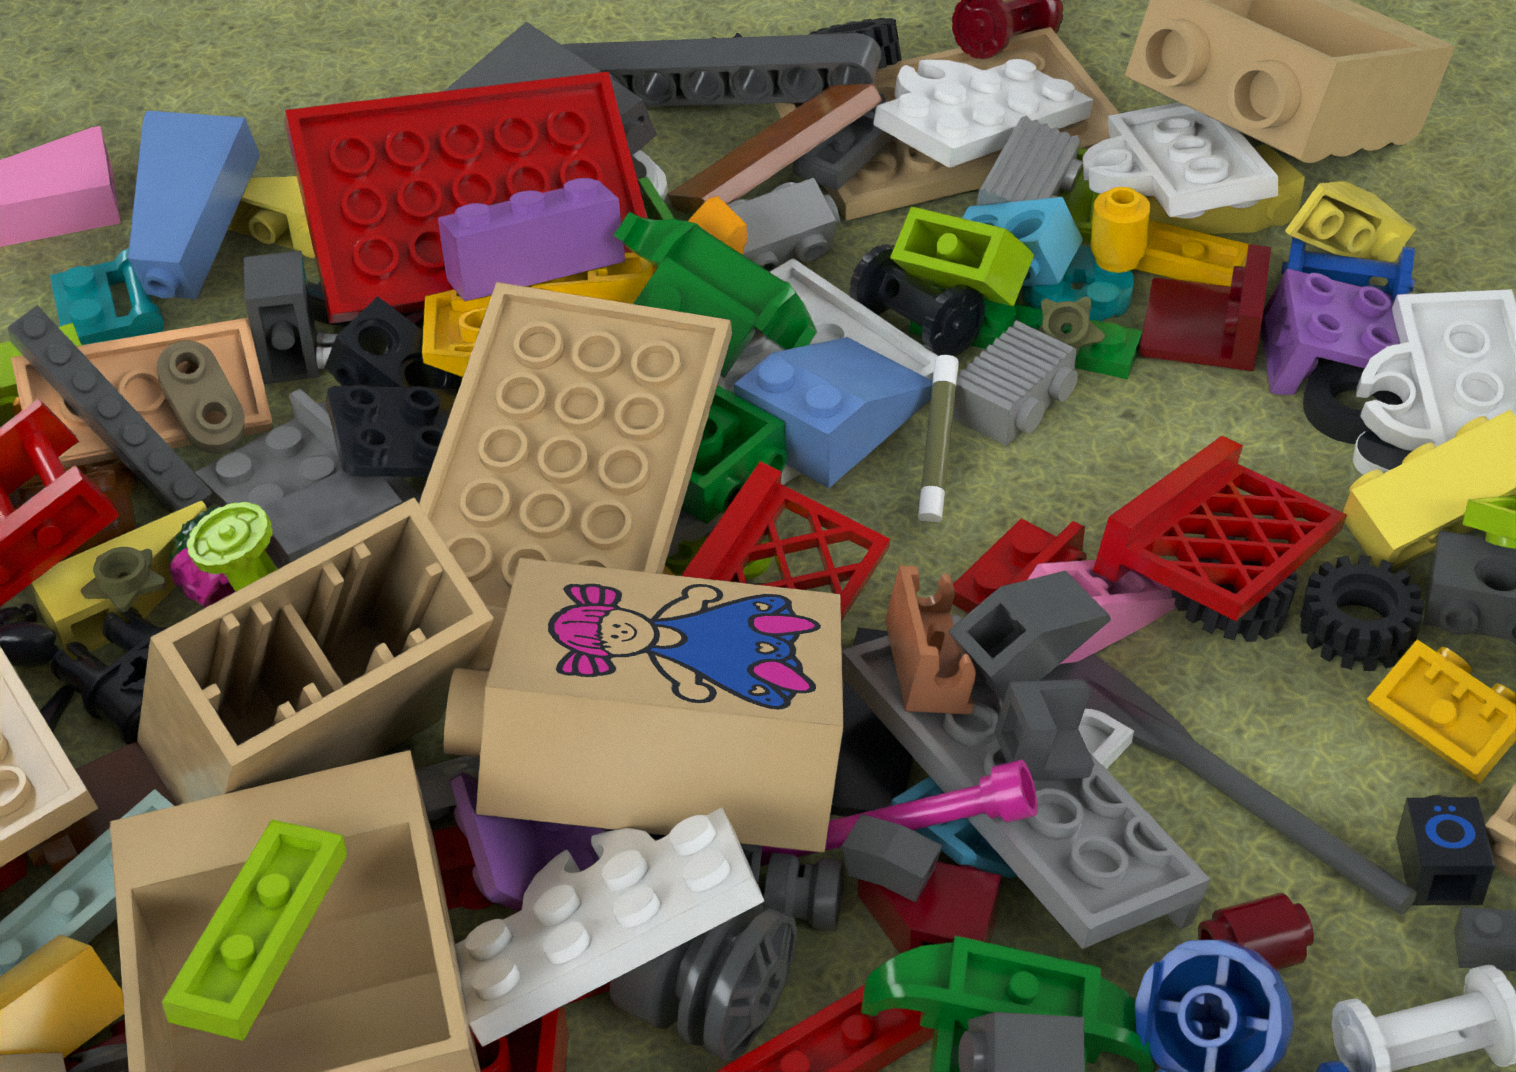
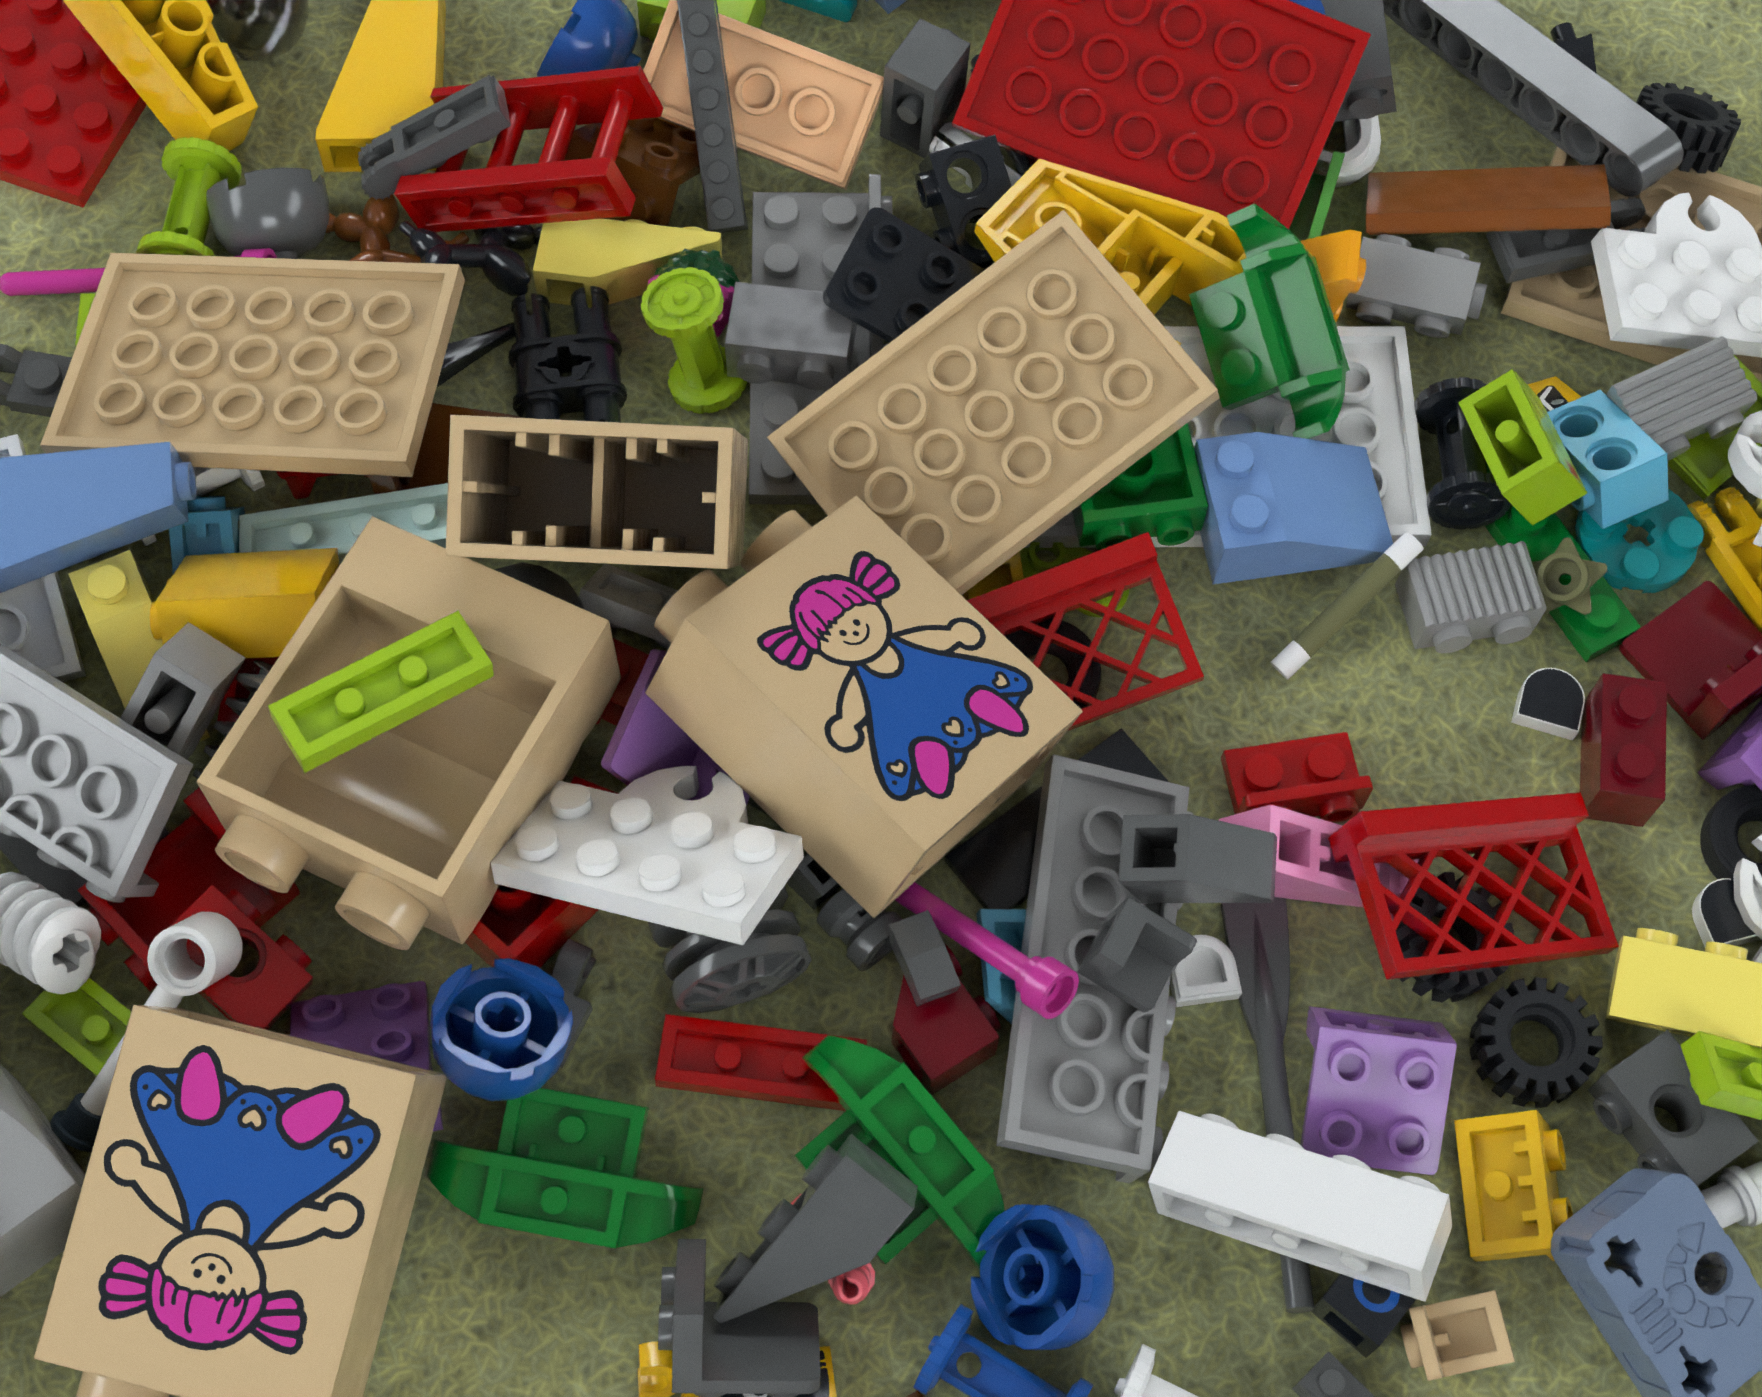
camera: 35 degrees right, 20 degrees up
(136, 574) = (603, 252): olive plate -> none
(199, 393) = (796, 128): dark tan plate -> none
(531, 238) = (1162, 167): medium lavender brick -> none
(925, 657) = (1129, 786): nougat hinge -> none
(1119, 229) = (1704, 516): yellow brick -> none
(1135, 414) = (1550, 703): none -> black tile
(1216, 397) = (1624, 749): none -> dark red brick
(1266, 925) = (1152, 1239): dark red brick -> none
(1299, 720) = (1378, 1089): none -> medium lavender bracket
(1343, 809) = (1302, 1203): none -> white brick

